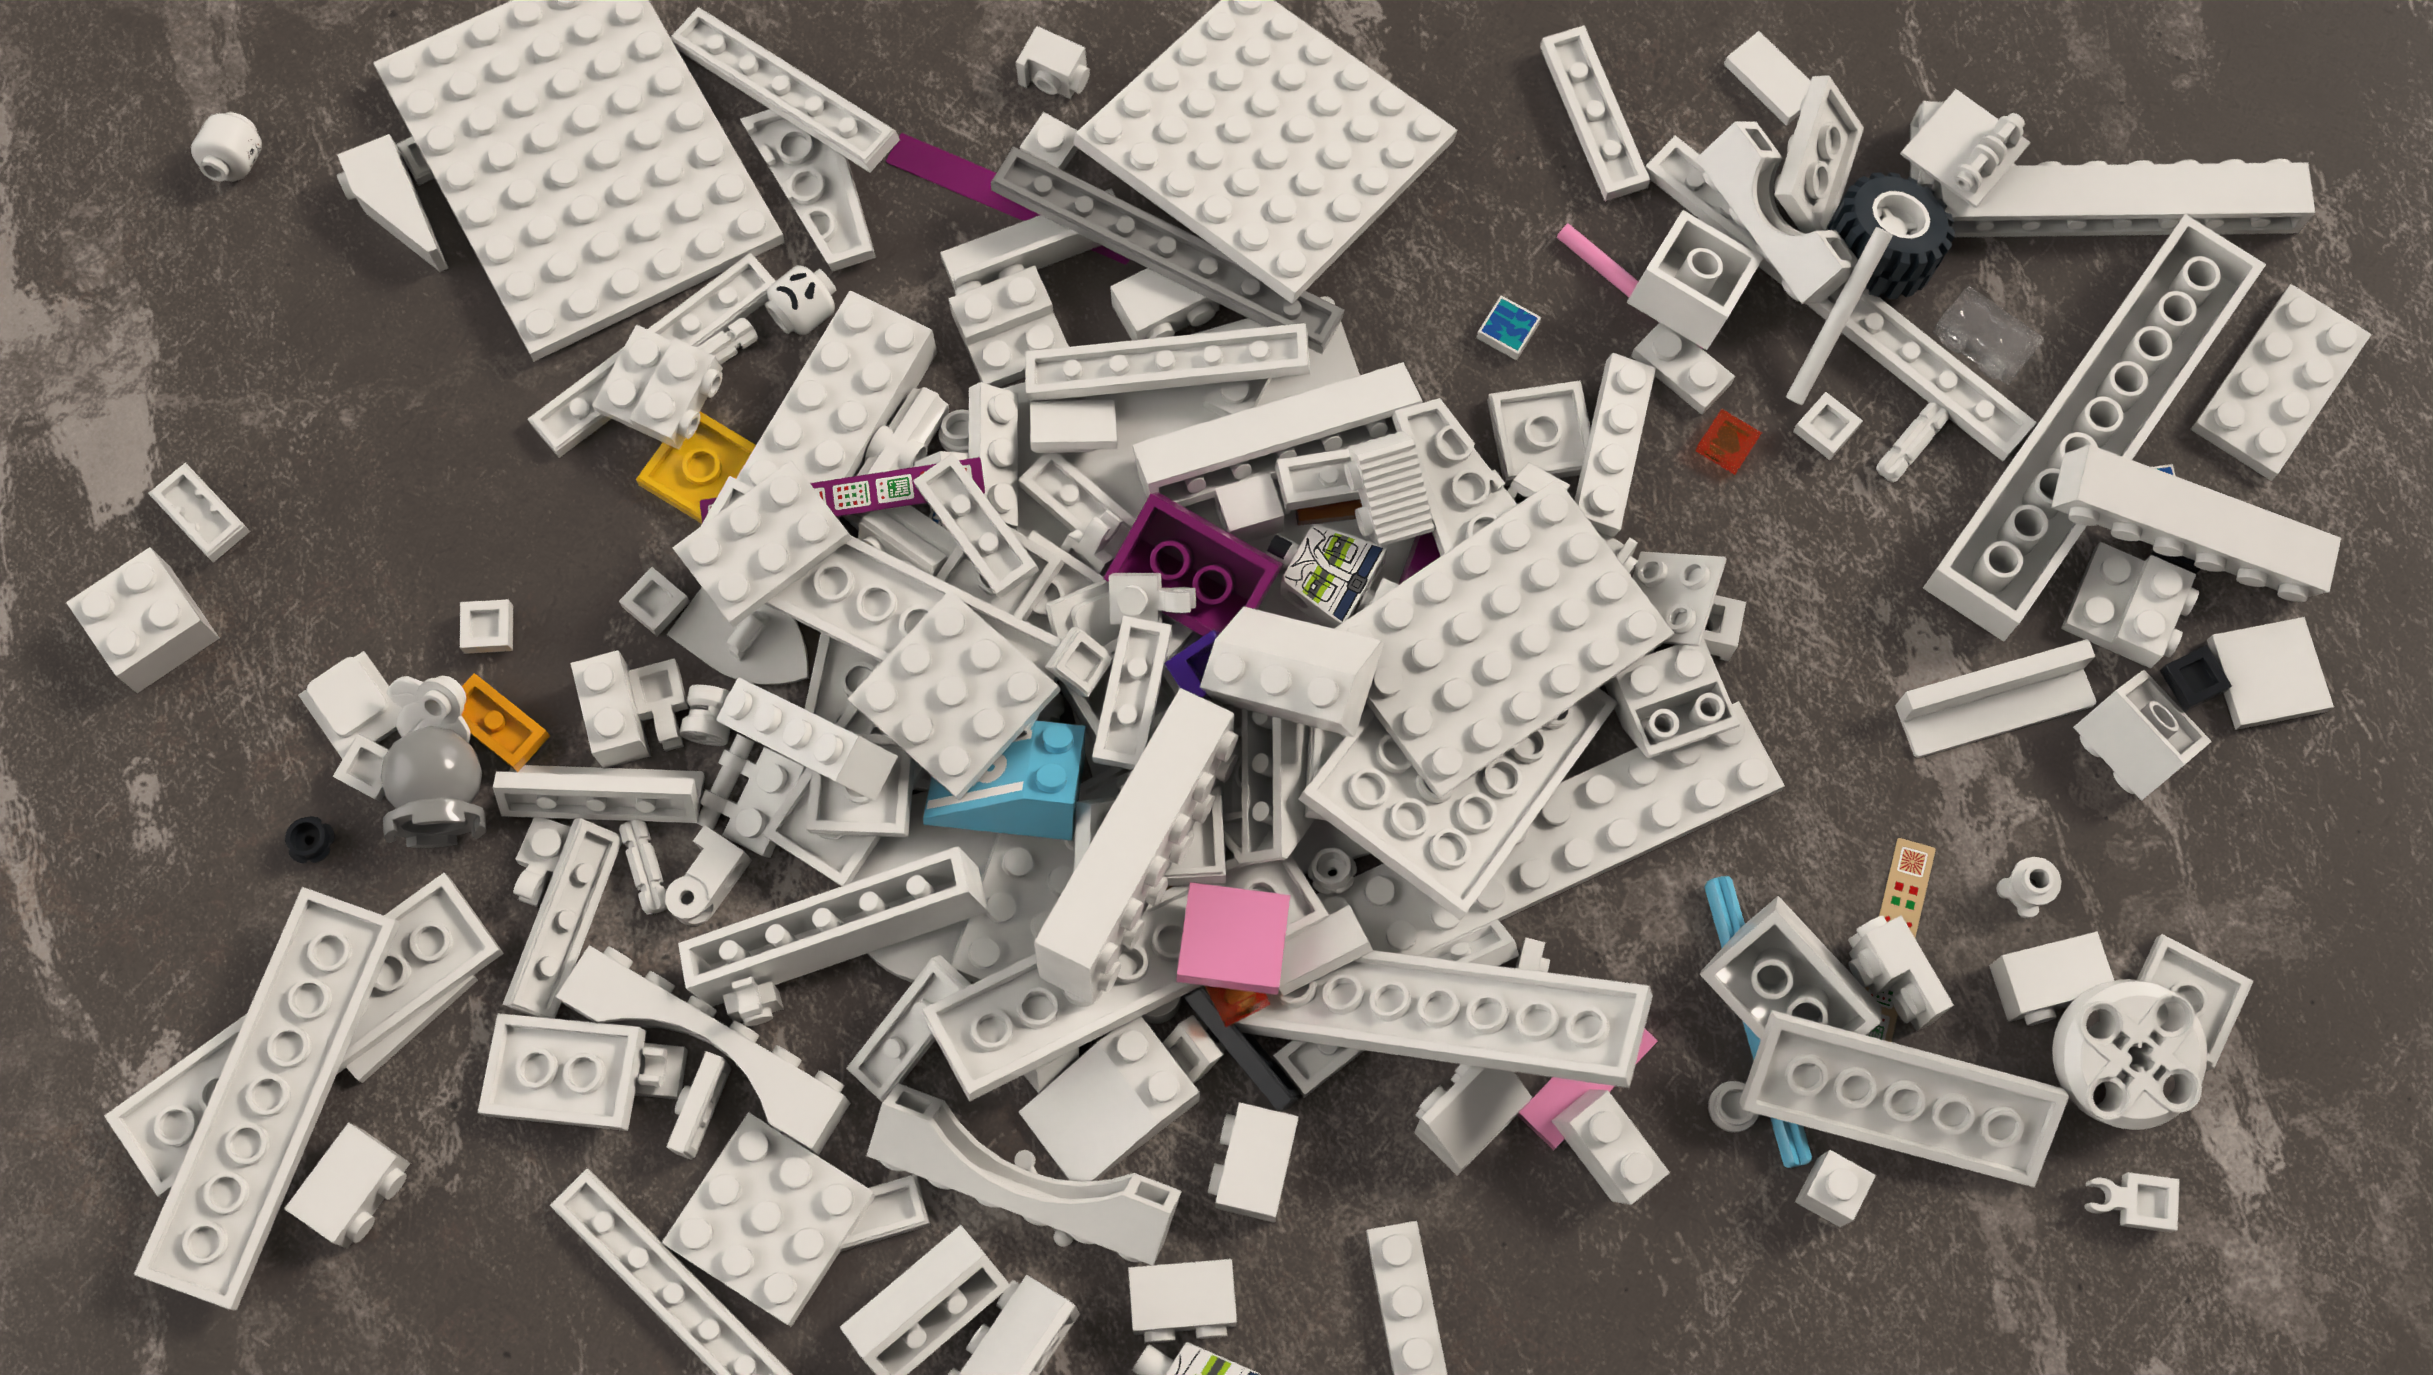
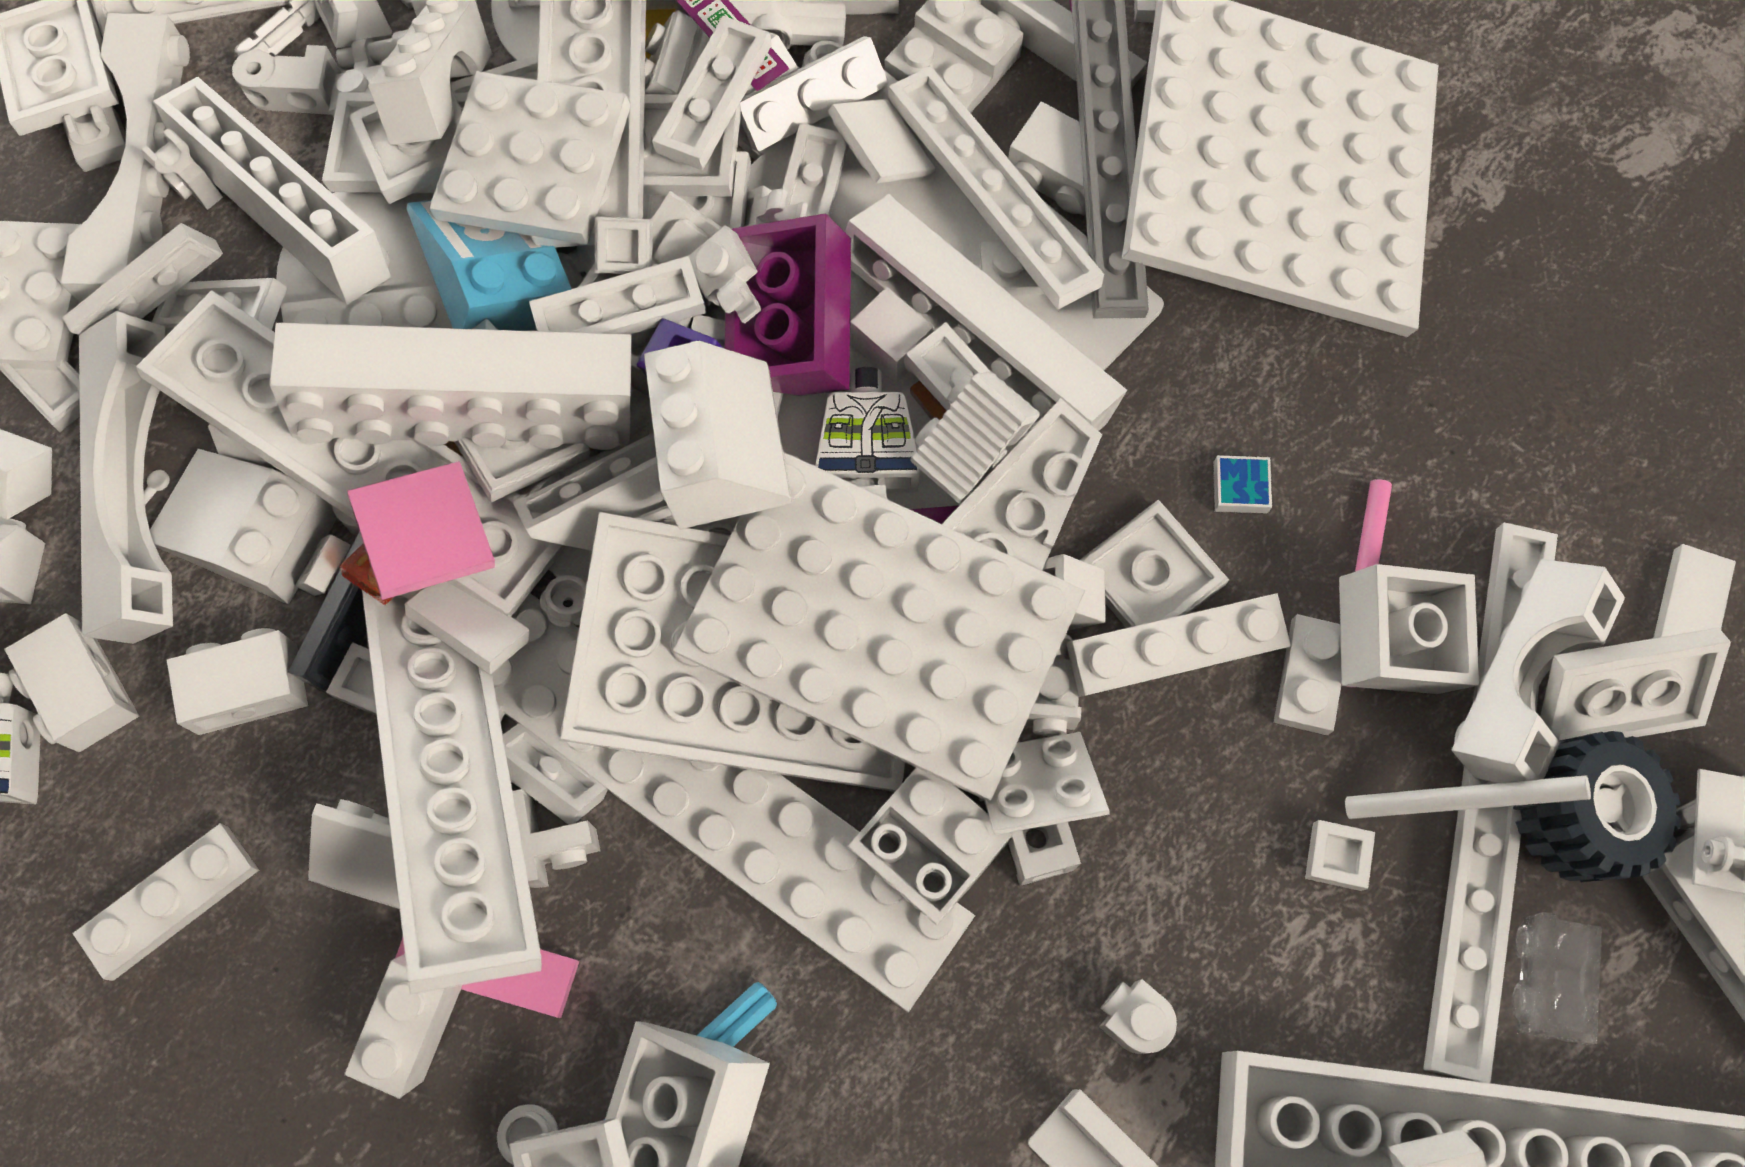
camera: 60 degrees right, 0 degrees up
(697, 1105) = (65, 181): white plate -> none
(855, 1080) = (148, 278): none -> white tile
(1594, 113) = (1527, 447): white plate -> none
(1728, 441) = (1259, 762): clear orange tile -> none
(1872, 628) = (1139, 1018): none -> white plate
(1912, 442) = (1382, 957): white axle -> none

